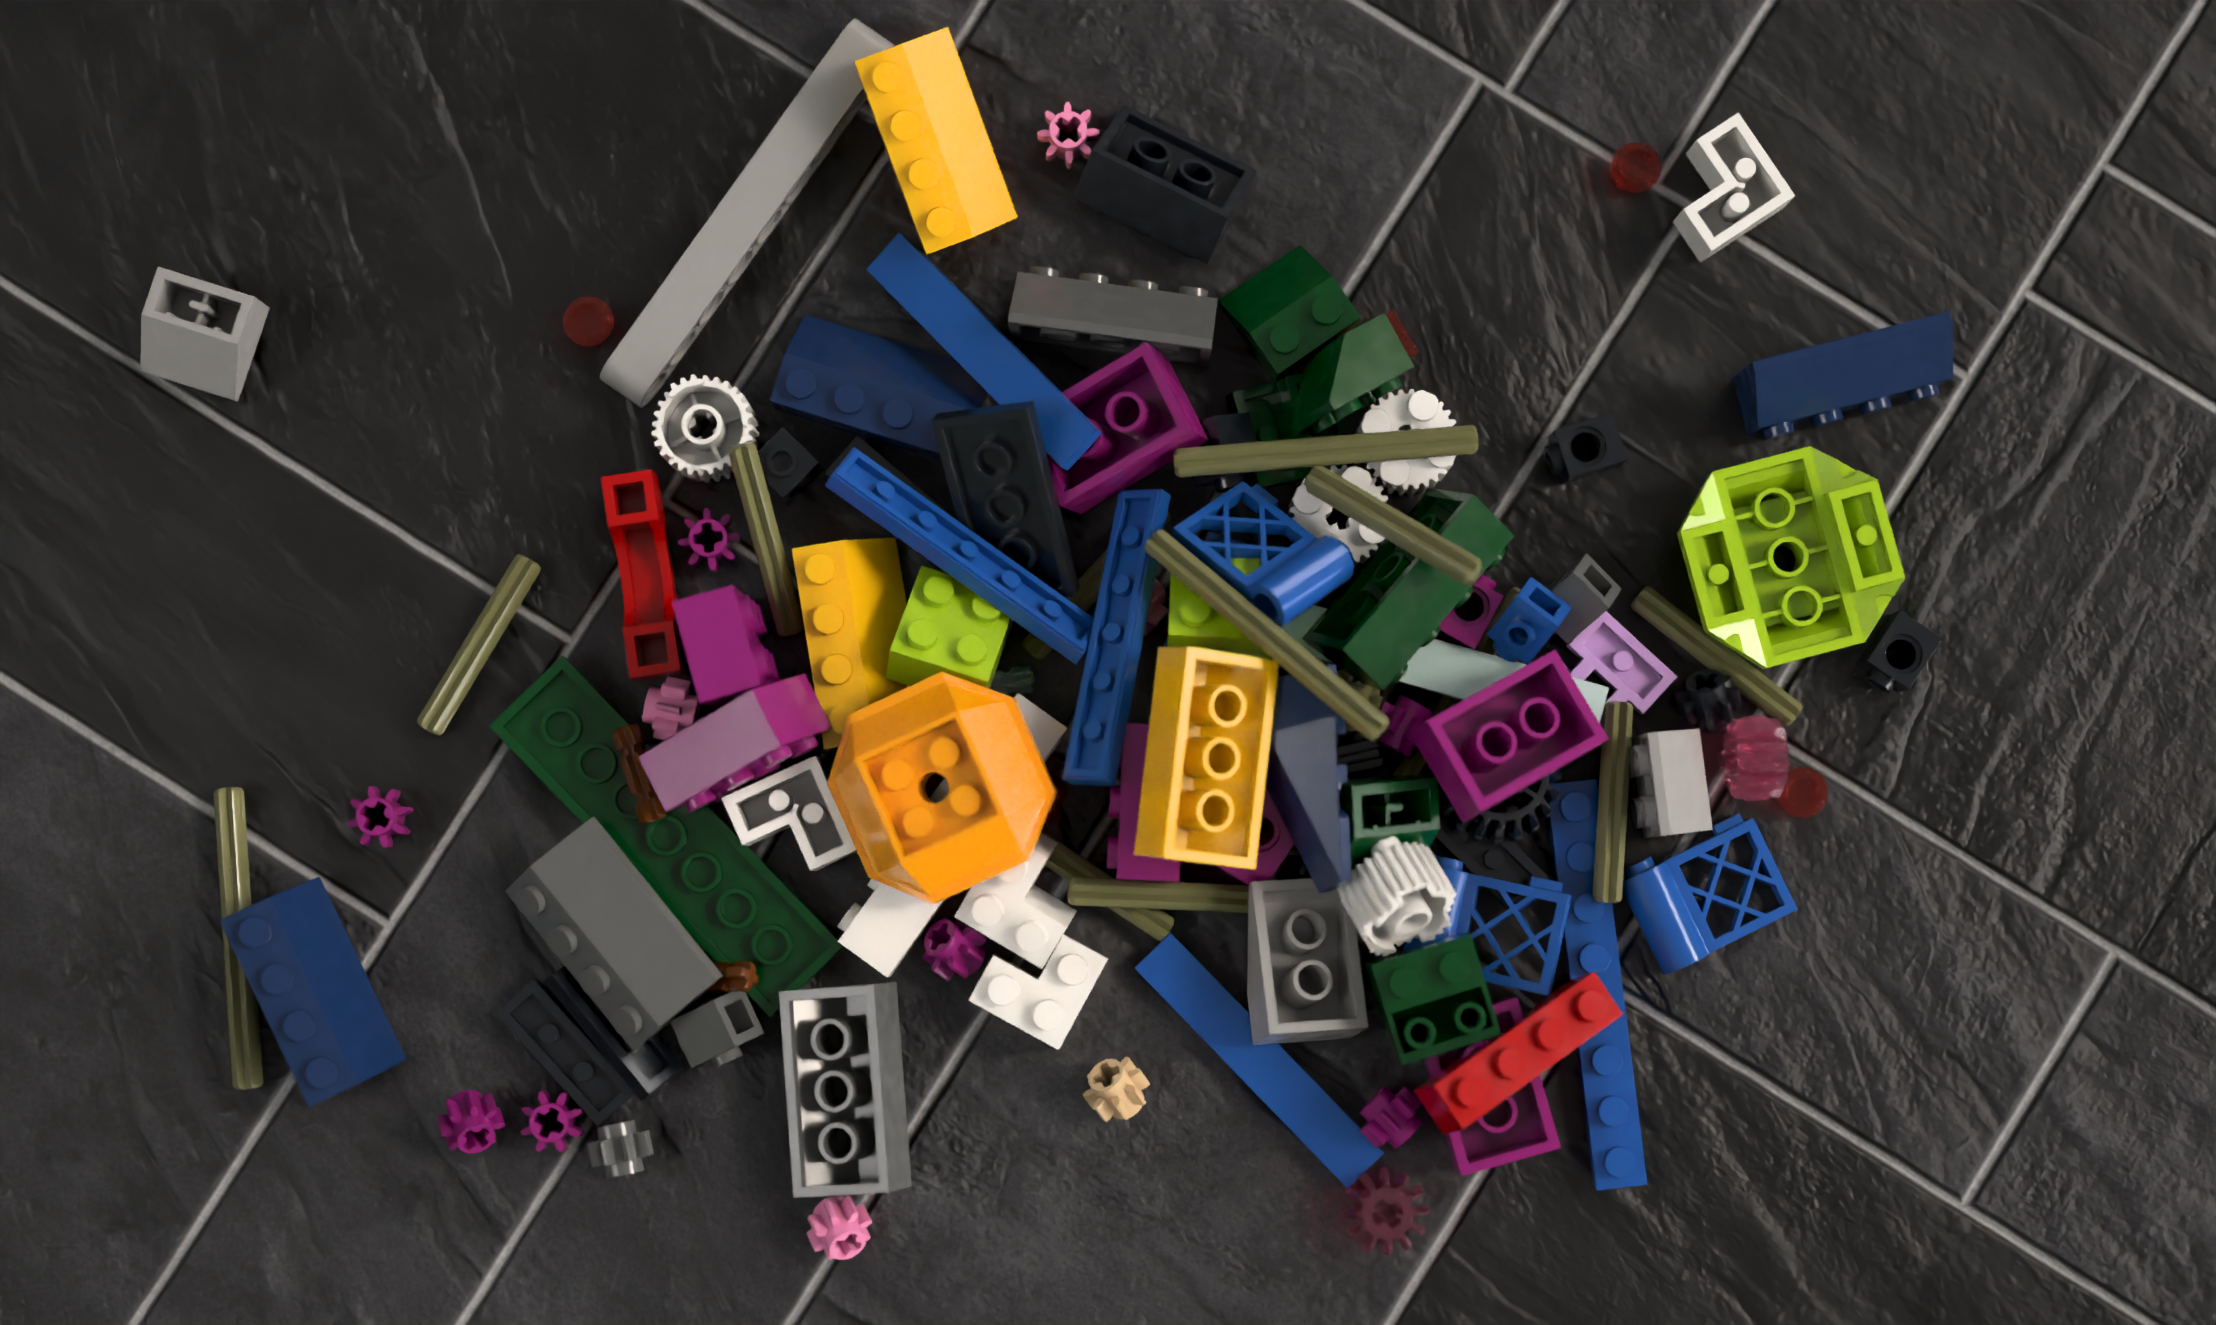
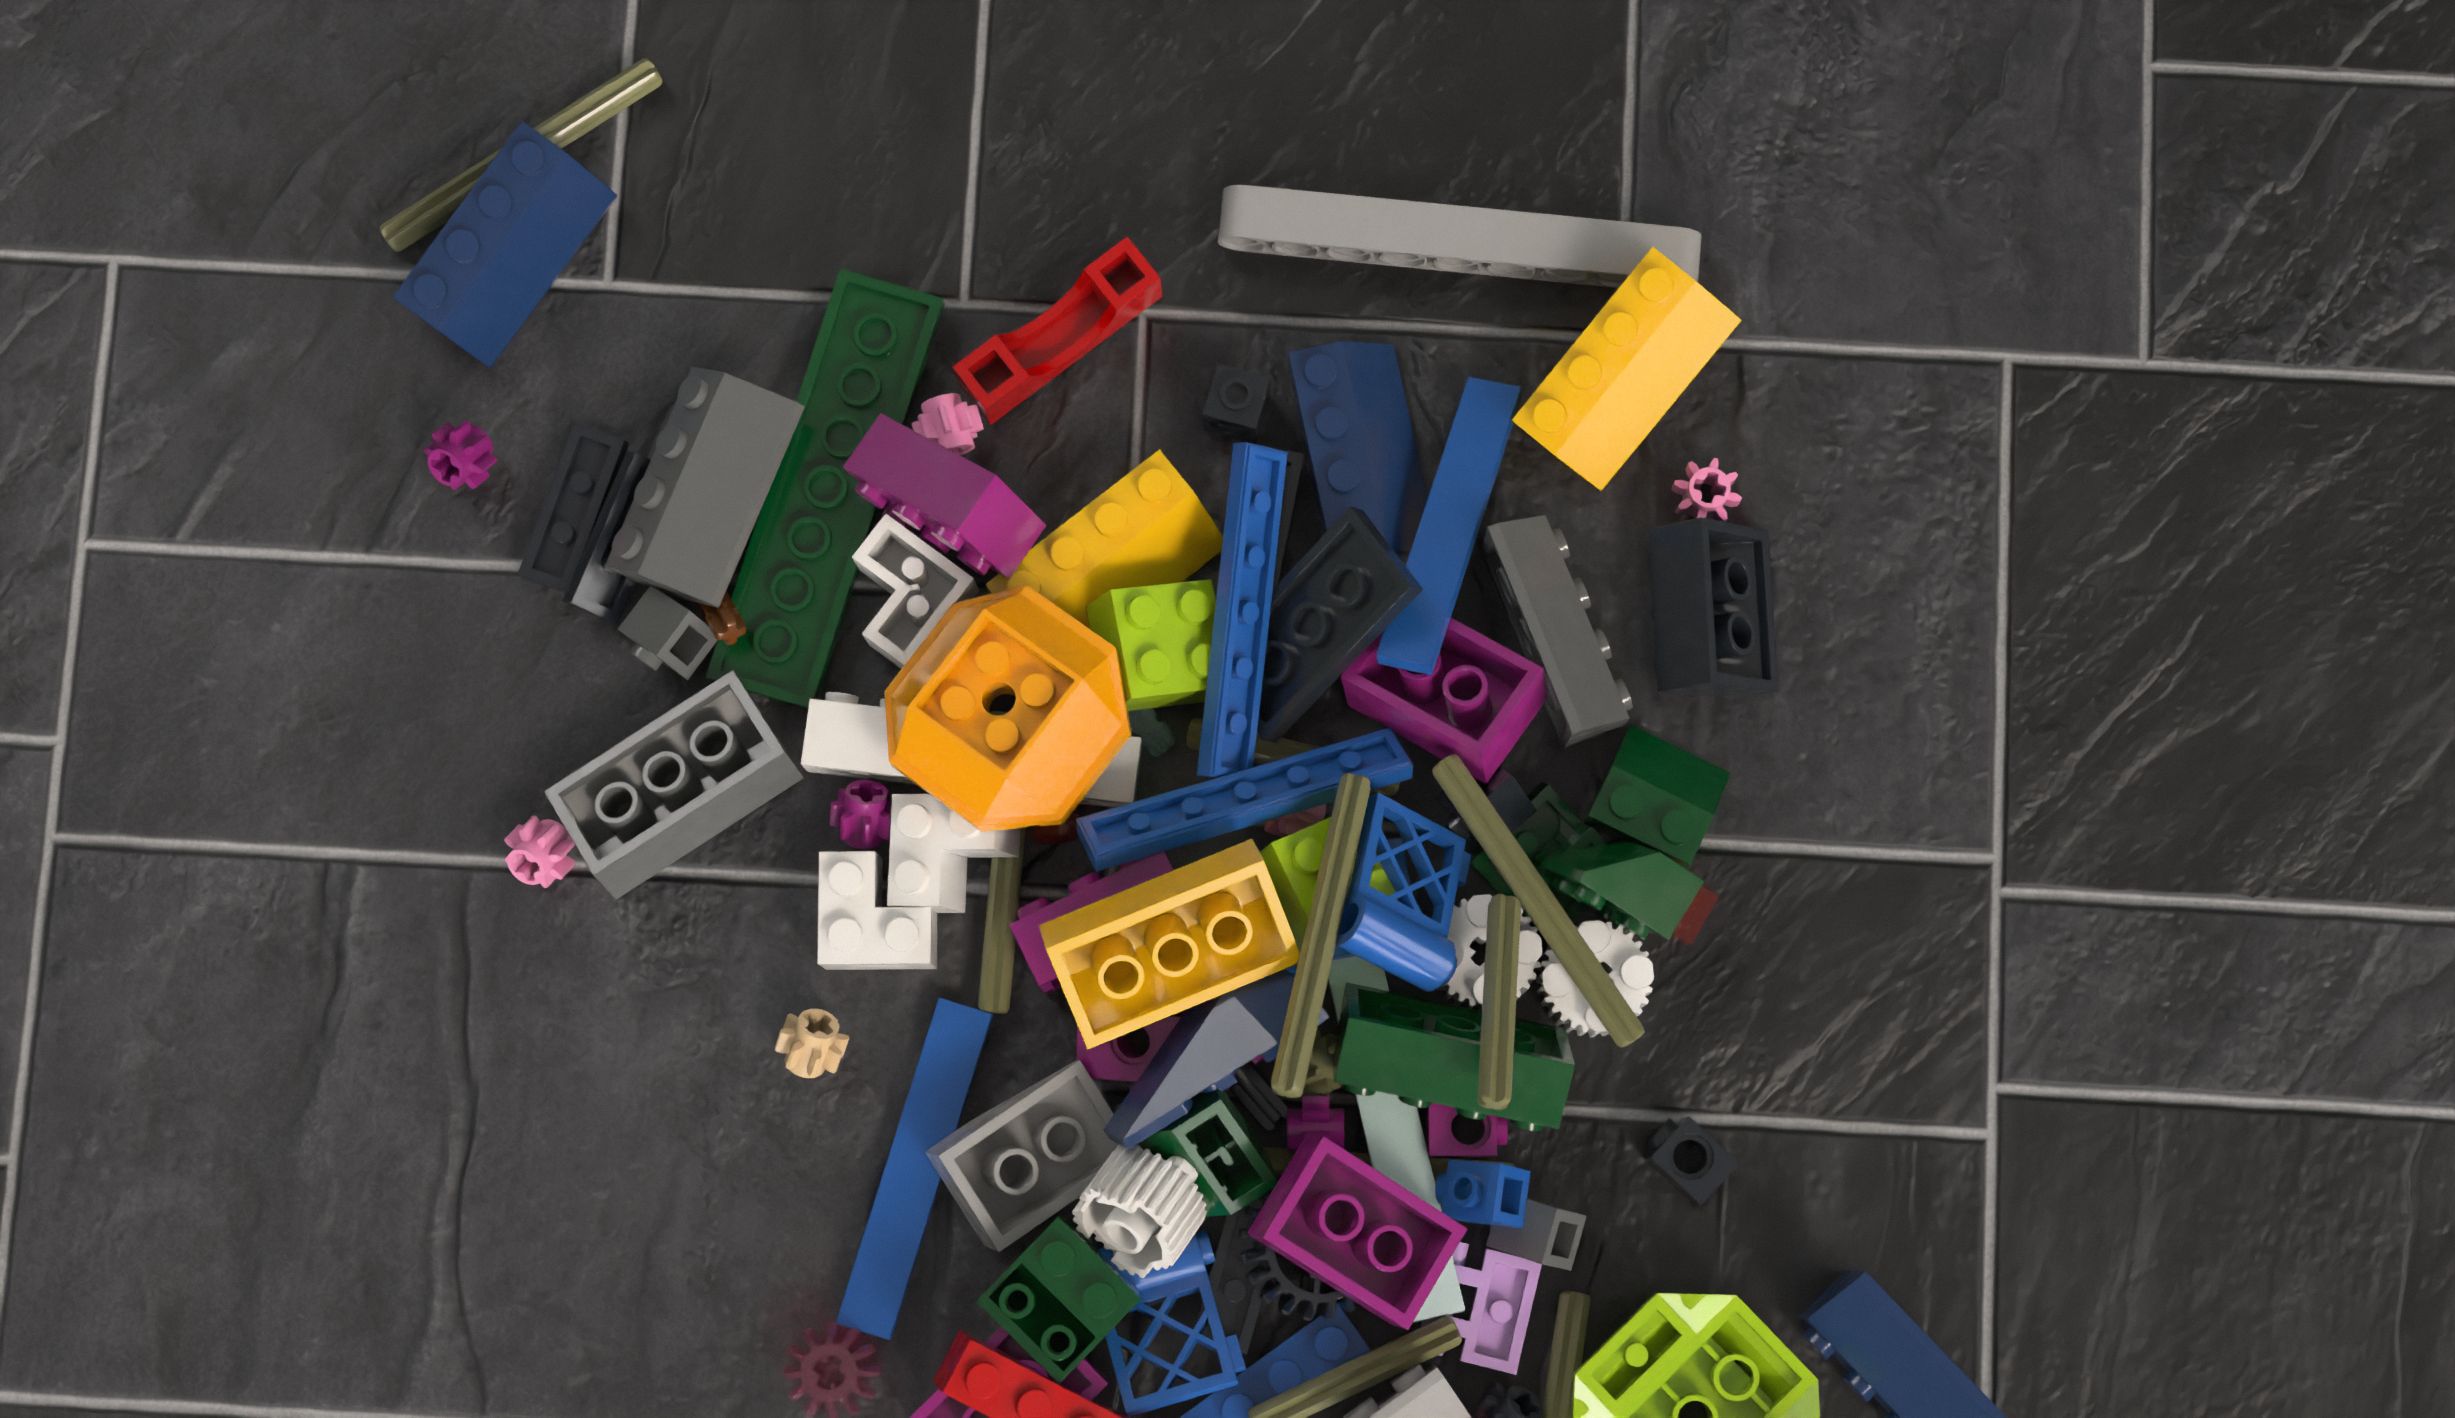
camera: 65 degrees right, 5 degrees down
(392, 811) = (690, 210): magenta gear -> none
(478, 644) = (912, 219): olive axle -> none
(539, 1126) = (489, 521): magenta gear -> none
(588, 321) = (1272, 151): clear red plate -> none
(620, 1148) = (507, 606): dark grey gear -> none
(629, 741) = (894, 402): reddish brown axle -> none
(680, 420) = (1228, 282): white brick -> none
(699, 531) = (1133, 361): magenta gear -> none
(724, 645) = (1031, 434): magenta brick -> none
(766, 538) = (1158, 419): olive axle -> none
(1158, 895) = (1019, 979): olive axle -> none
(1390, 1117) = (925, 1325): magenta gear -> none
(1636, 167) = (1997, 1058): clear red plate -> none
(1742, 187) = (2033, 1175): white brick -> none

